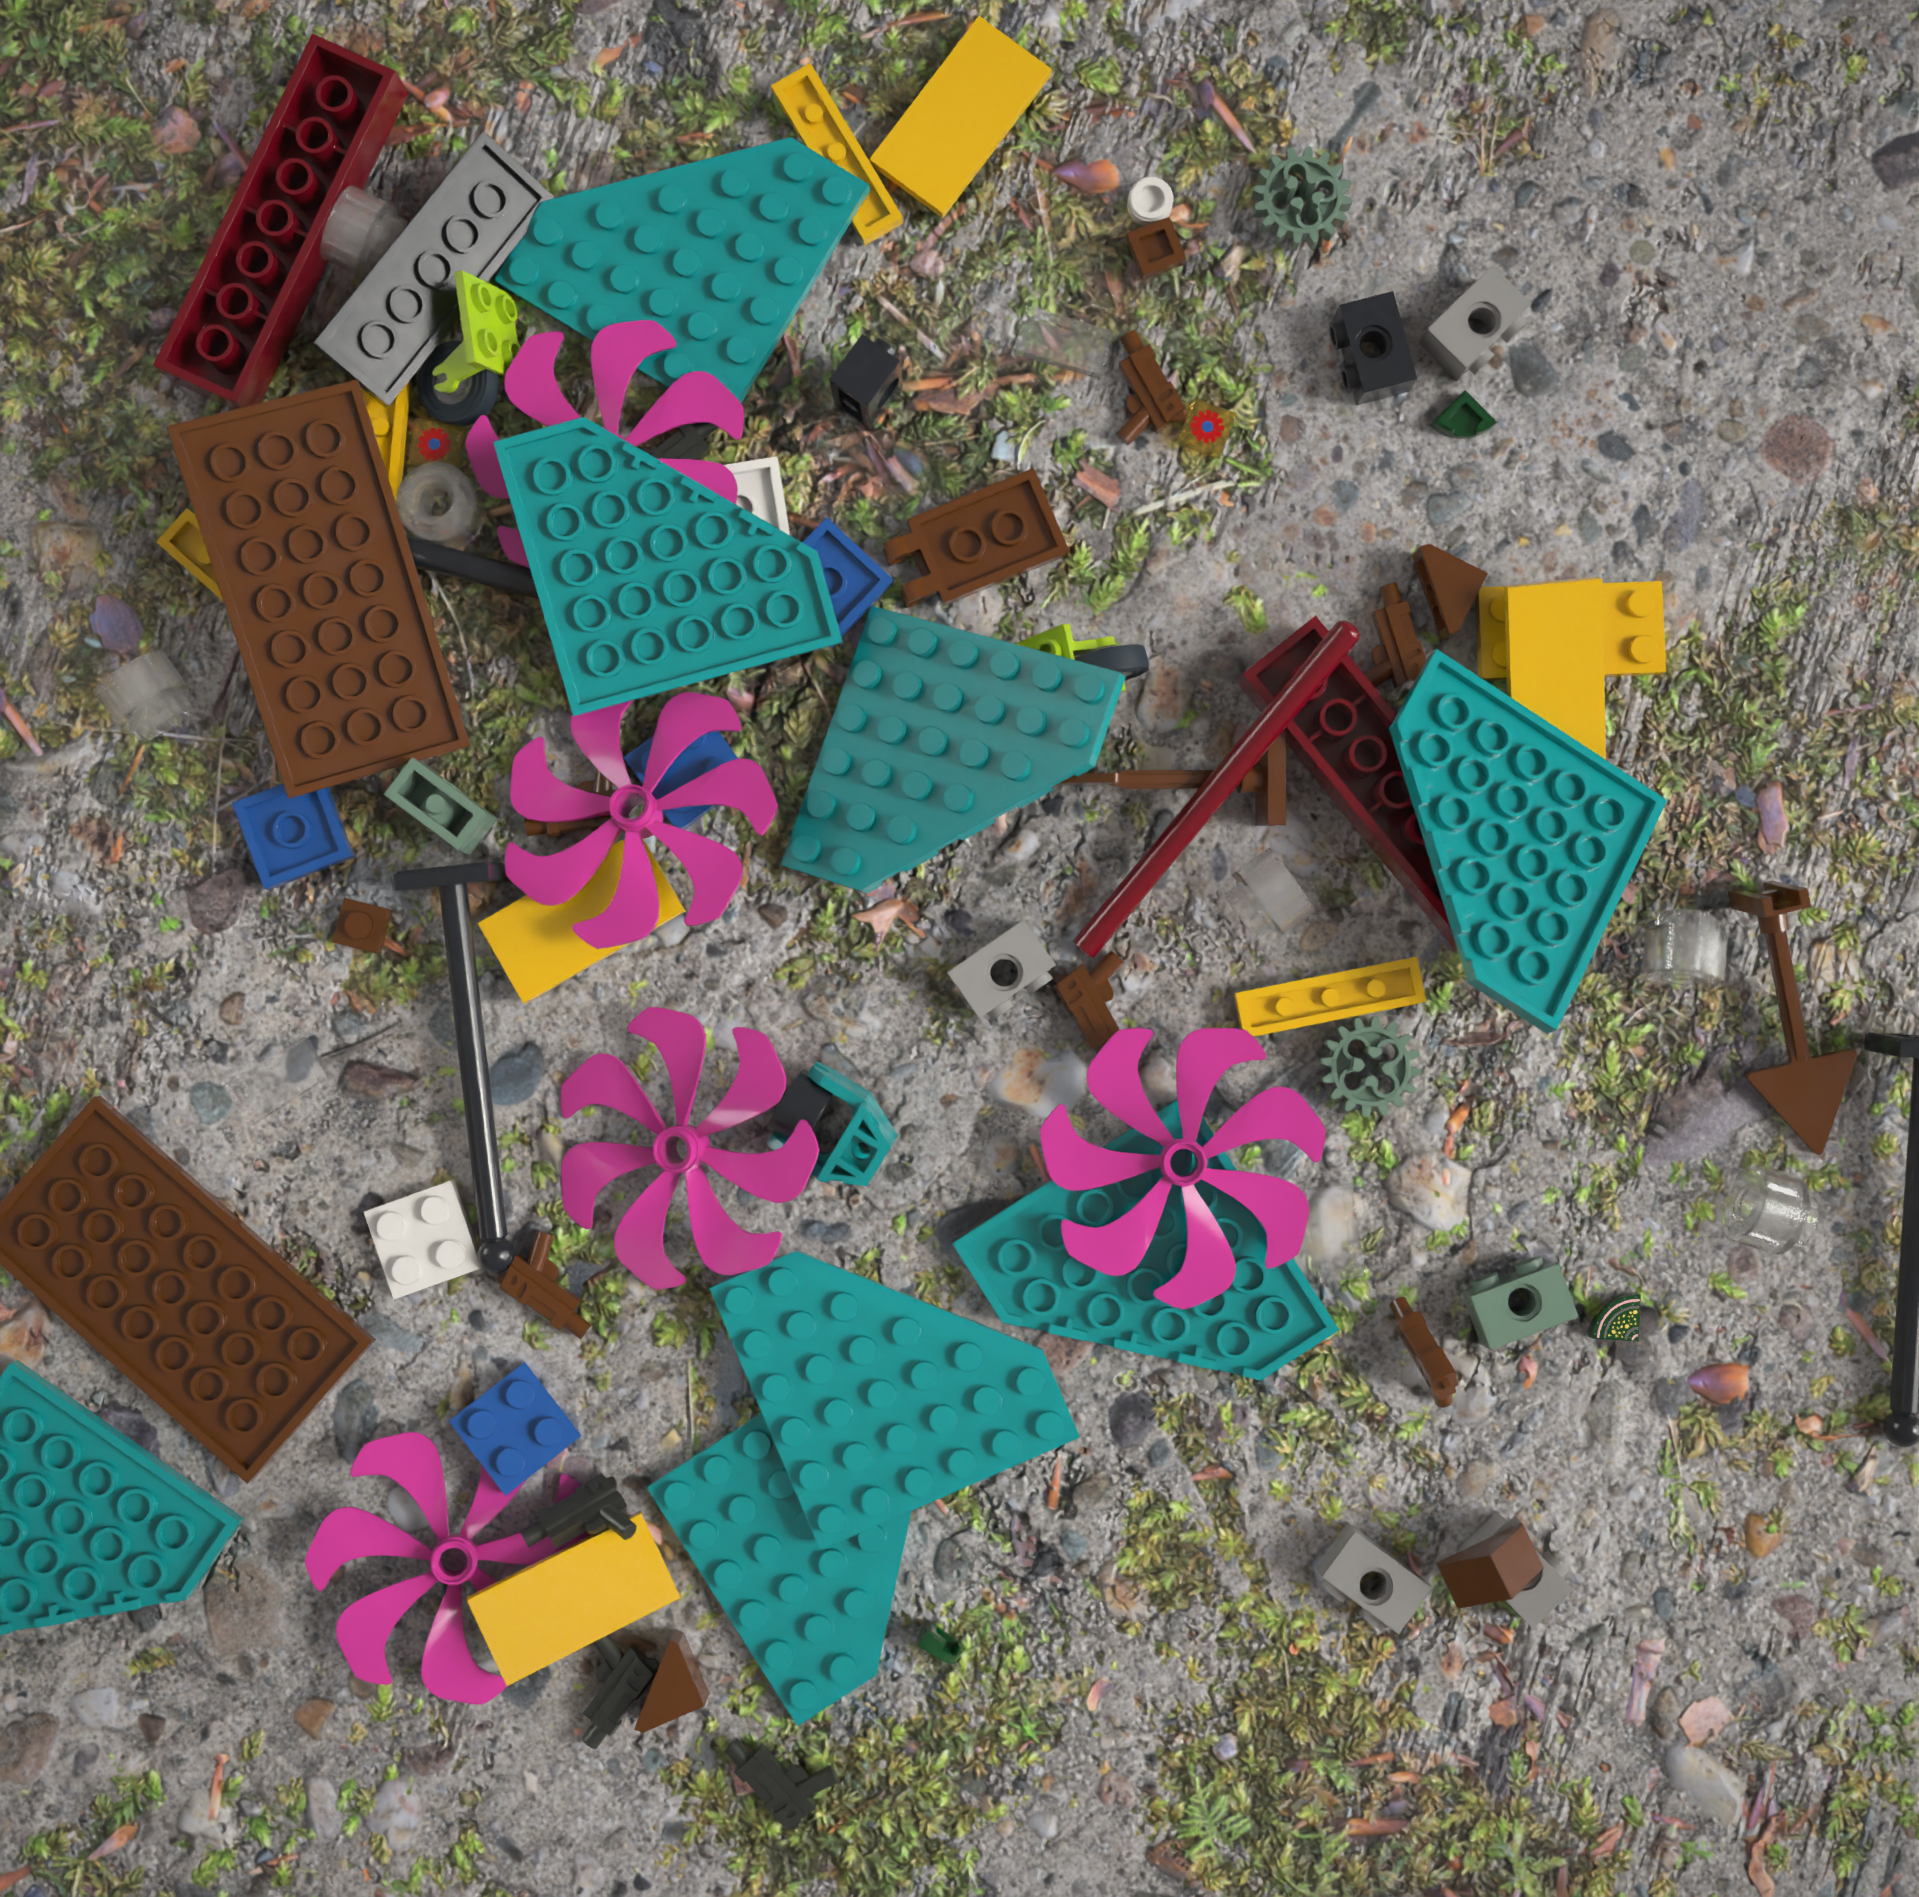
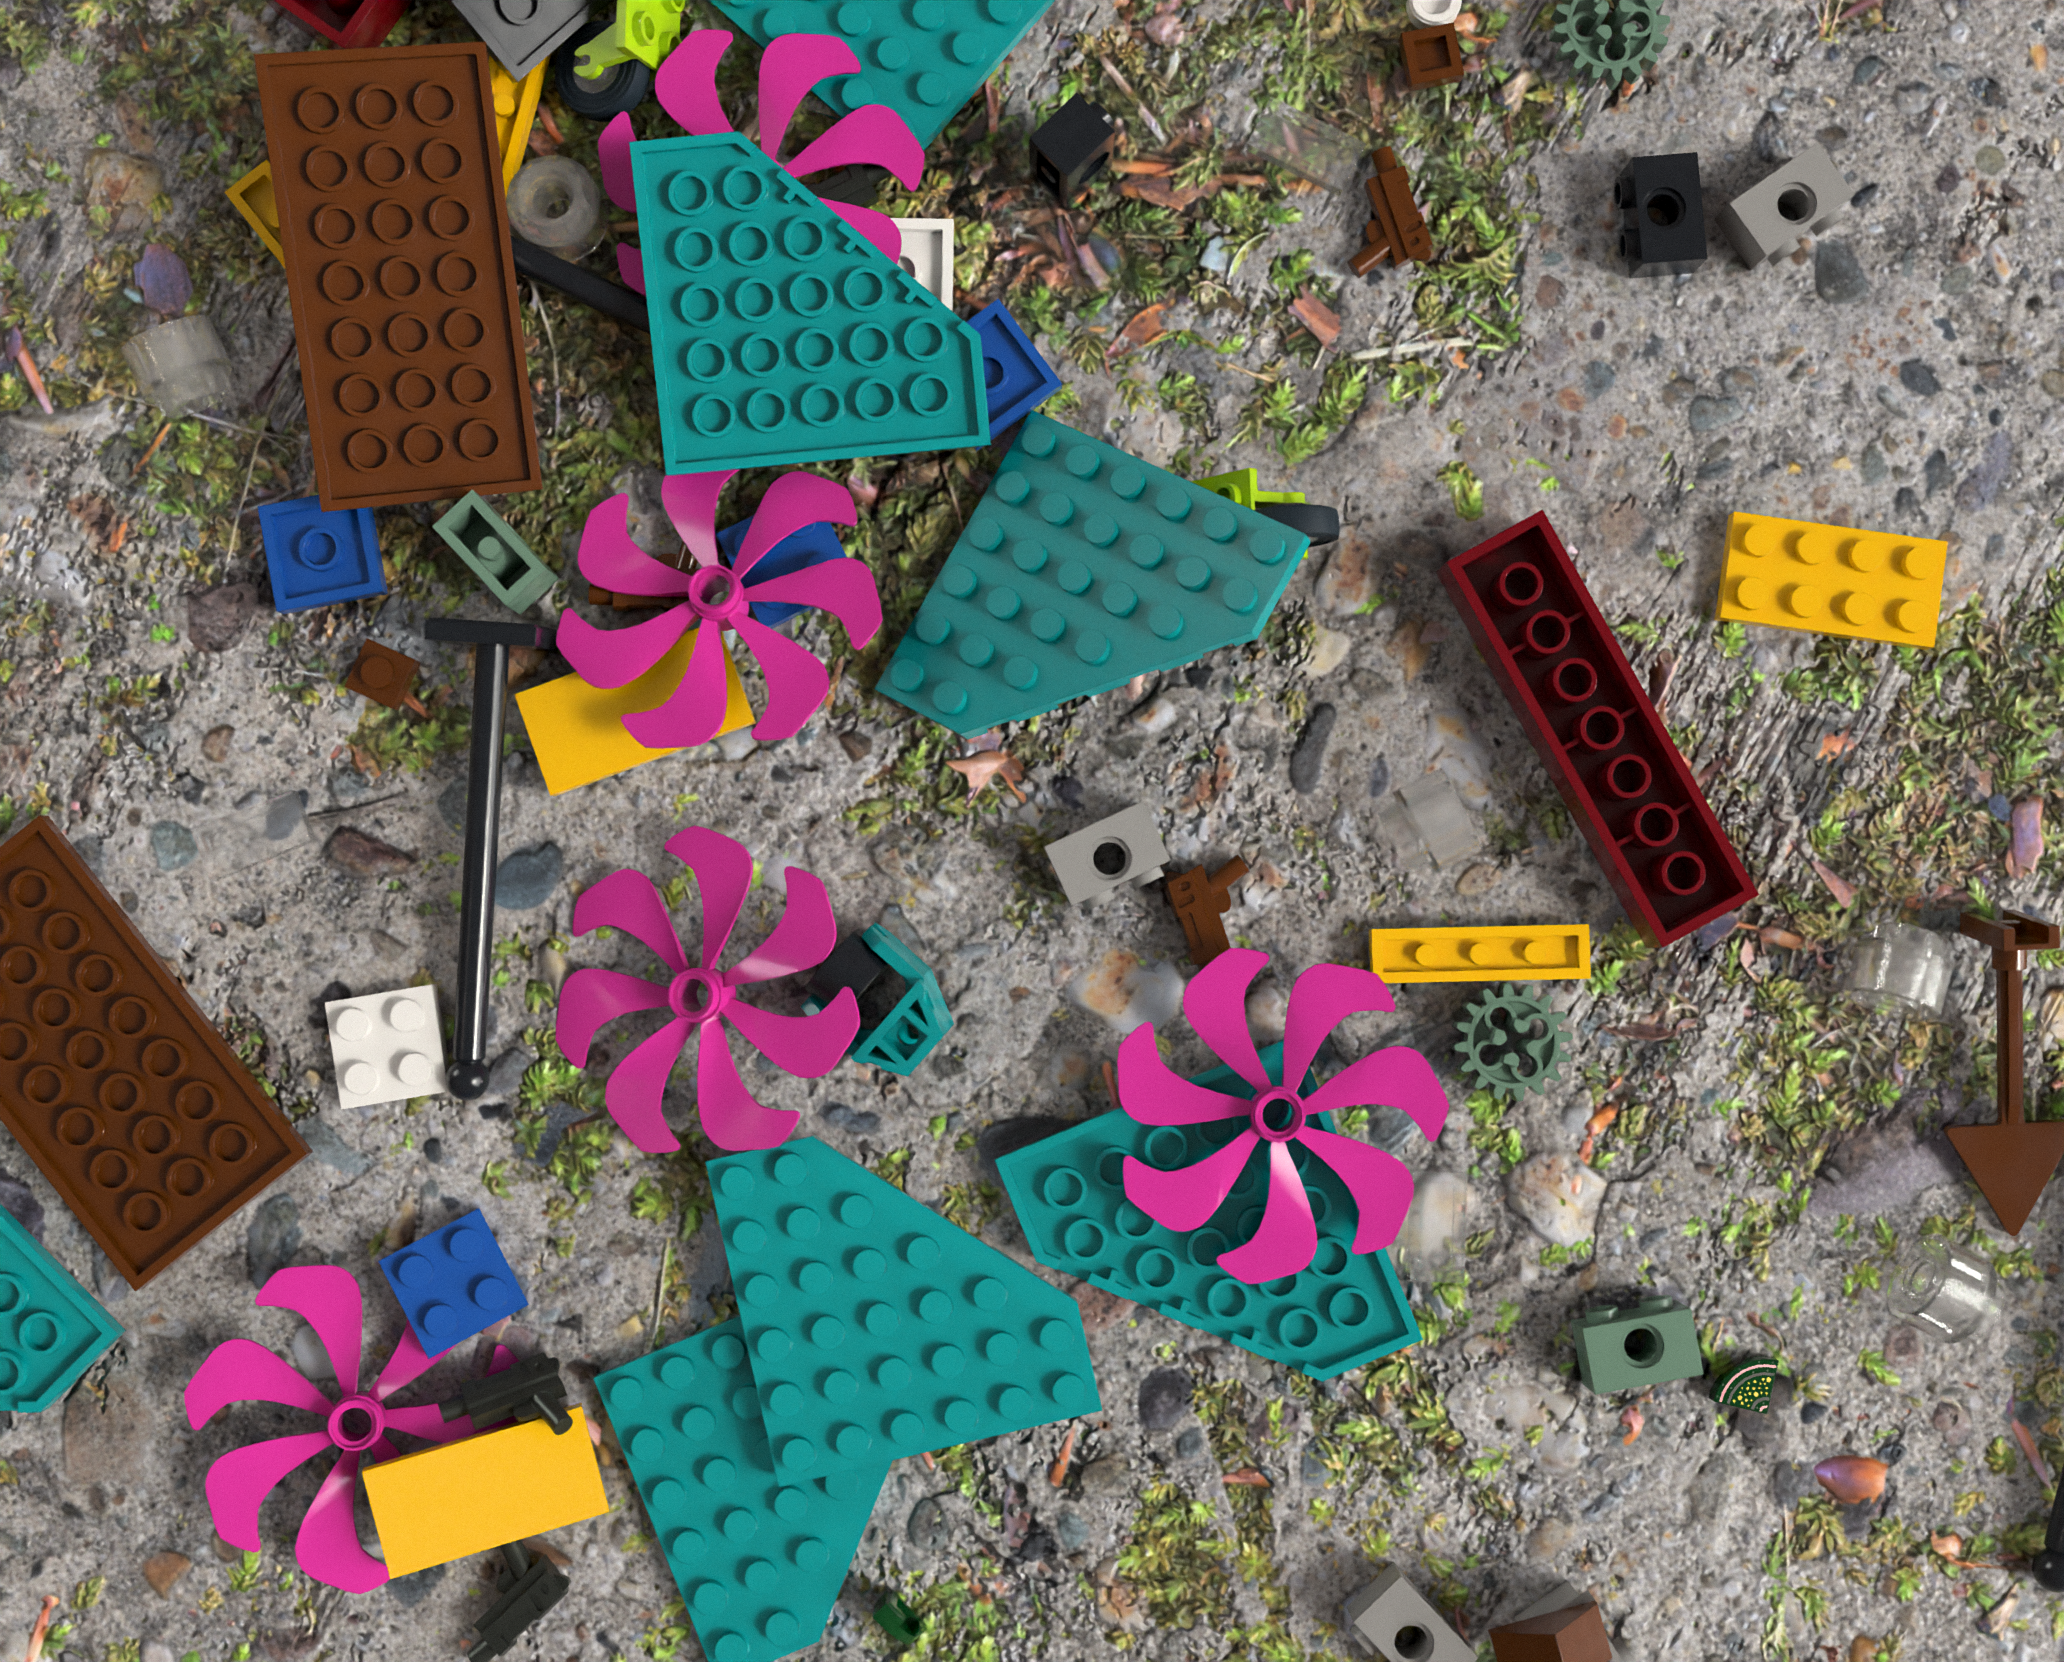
camera: 10 degrees right, 0 degrees up
(435, 443) = (564, 135): clear yellow tile -> none
(534, 1284) = (506, 1121): reddish brown piece -> none
(676, 1687) = (586, 1615): reddish brown slope -> none
(979, 541) = (1168, 357): reddish brown tile -> none
(1206, 428) = (1452, 274): clear yellow tile -> none
(1217, 787) = (1395, 687): dark red piece -> none
(1265, 779) = (1448, 689): reddish brown piece -> none
(1400, 652) = (1630, 571): reddish brown piece -> none
(1425, 1352) = (1518, 1383): reddish brown piece -> none
(1448, 587) = (1699, 504): reddish brown slope -> none
(1463, 419) = (1751, 315): dark green tile -> none
(1520, 835) = (1735, 805): teal plate -> none
(1559, 655) = (1807, 626): yellow tile -> none

